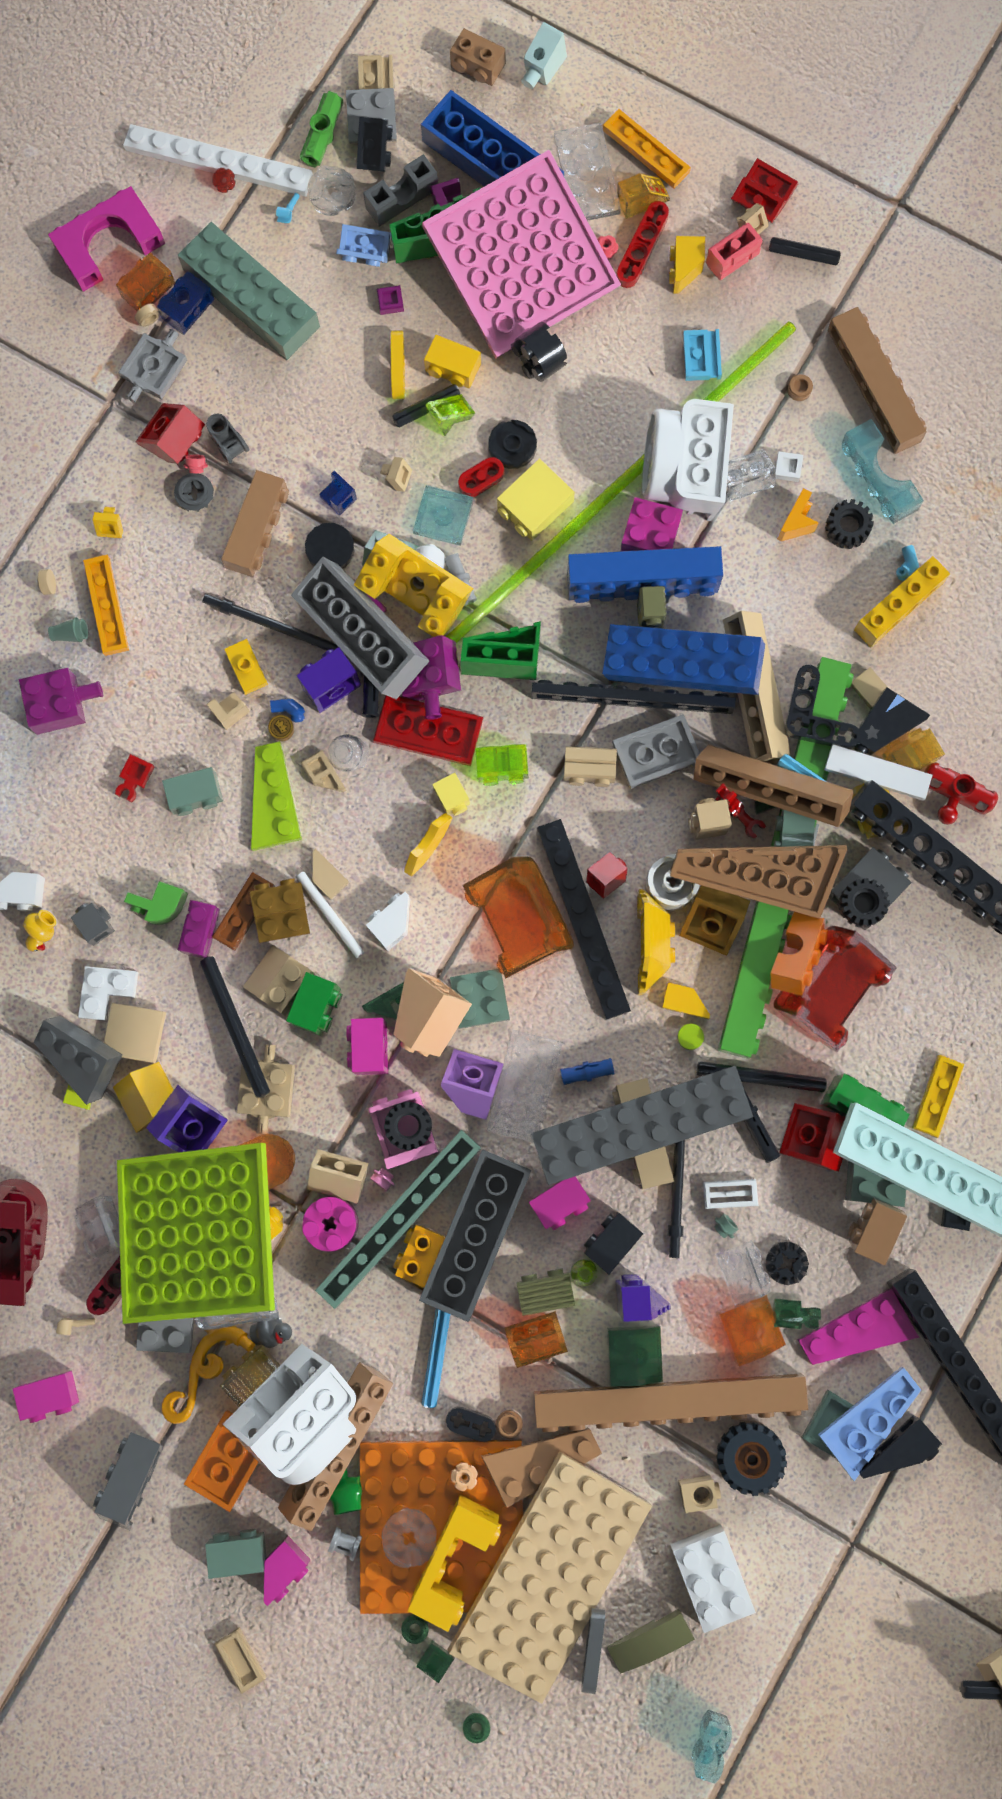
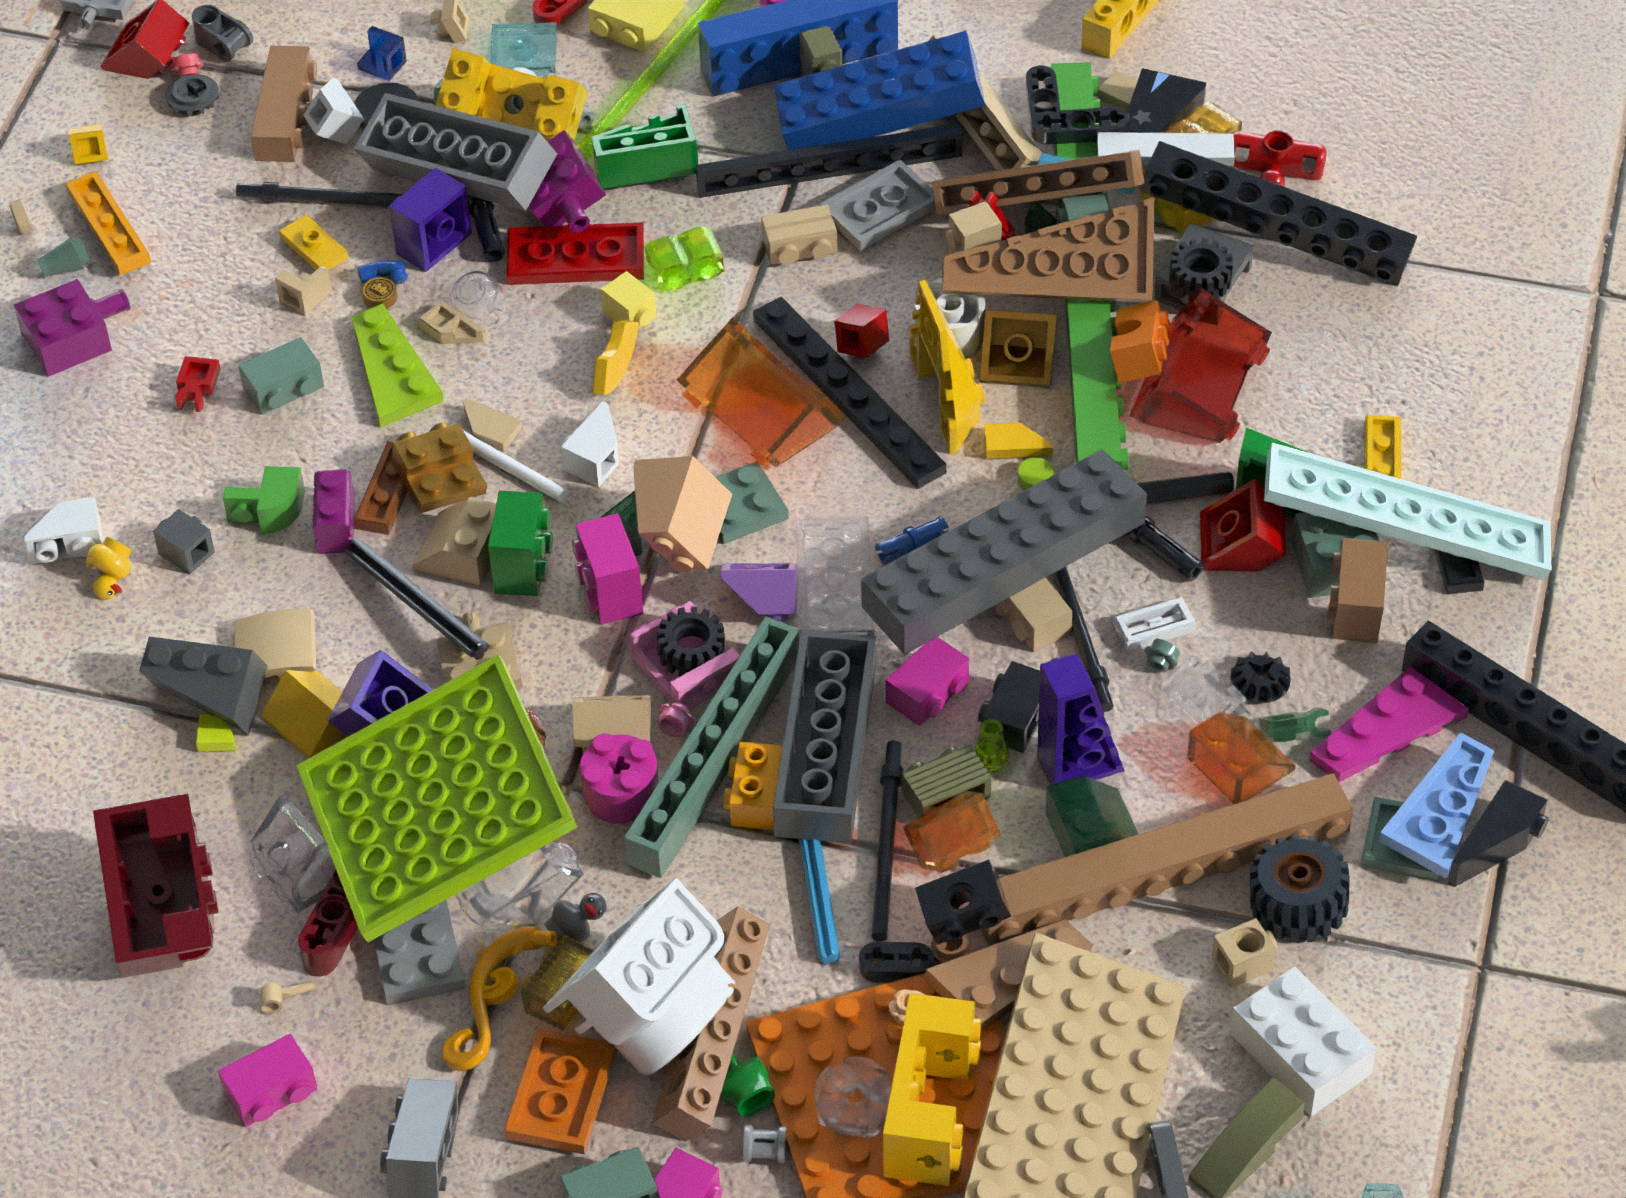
camera: 20 degrees left, 30 degrees down
(99, 985) = (216, 605): white plate -> none
(286, 546) = (333, 113): none -> white slope
(512, 1272) = (891, 781): none -> black bar
(536, 1408) = (944, 896): none -> black brick

